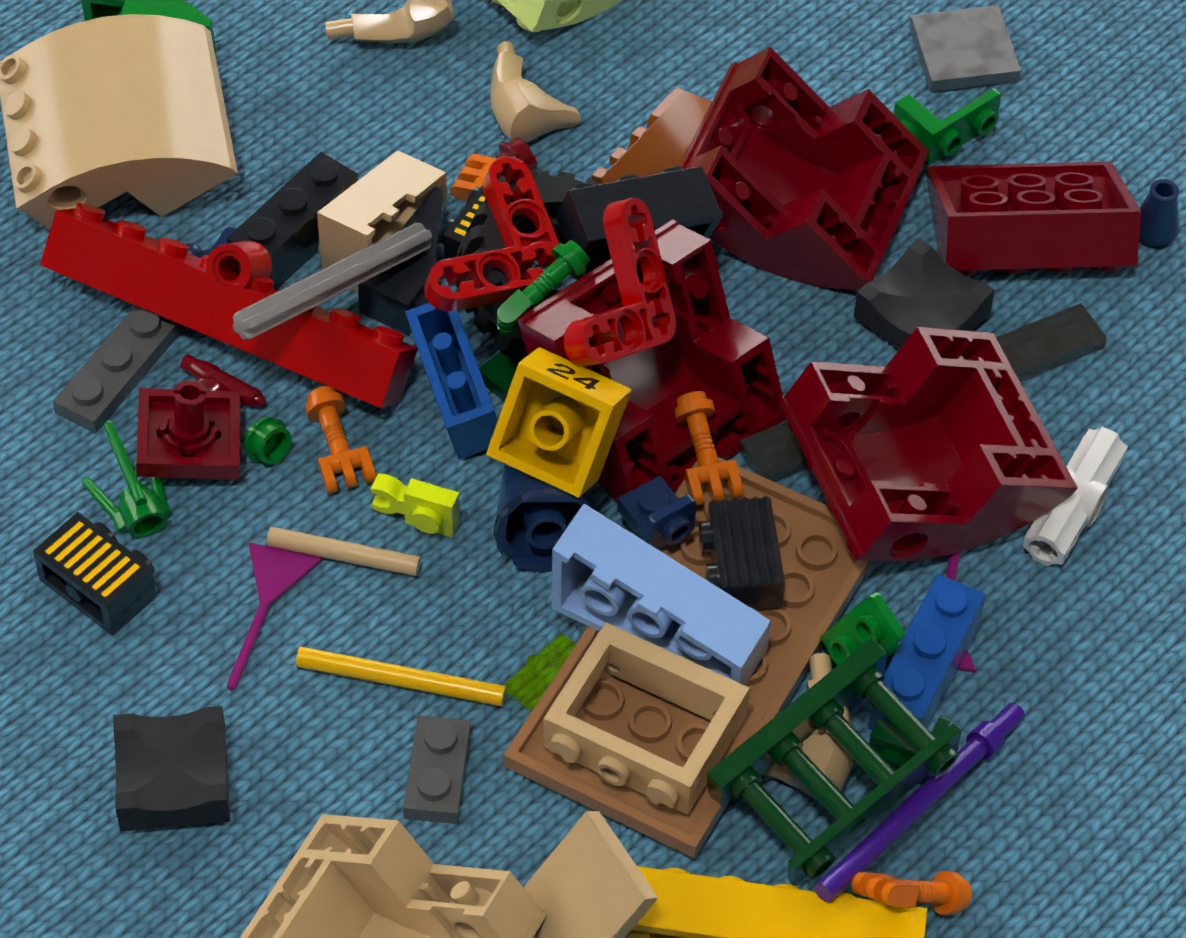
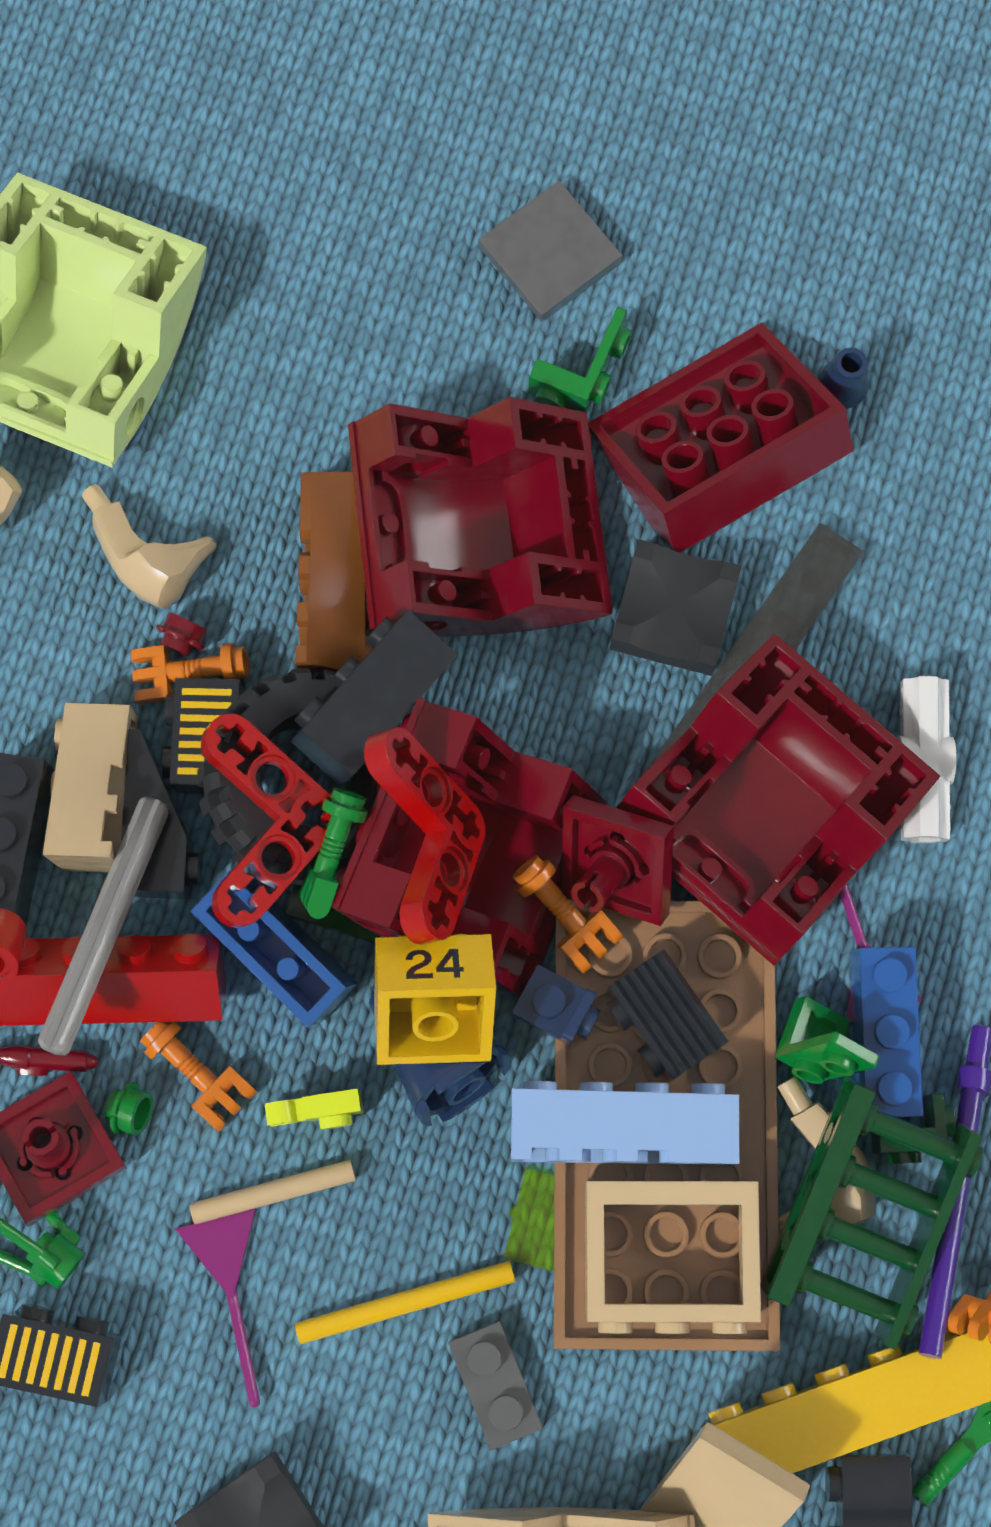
camera: 25 degrees left, 25 degrees up
(758, 422) = (615, 871): none -> dark red plate

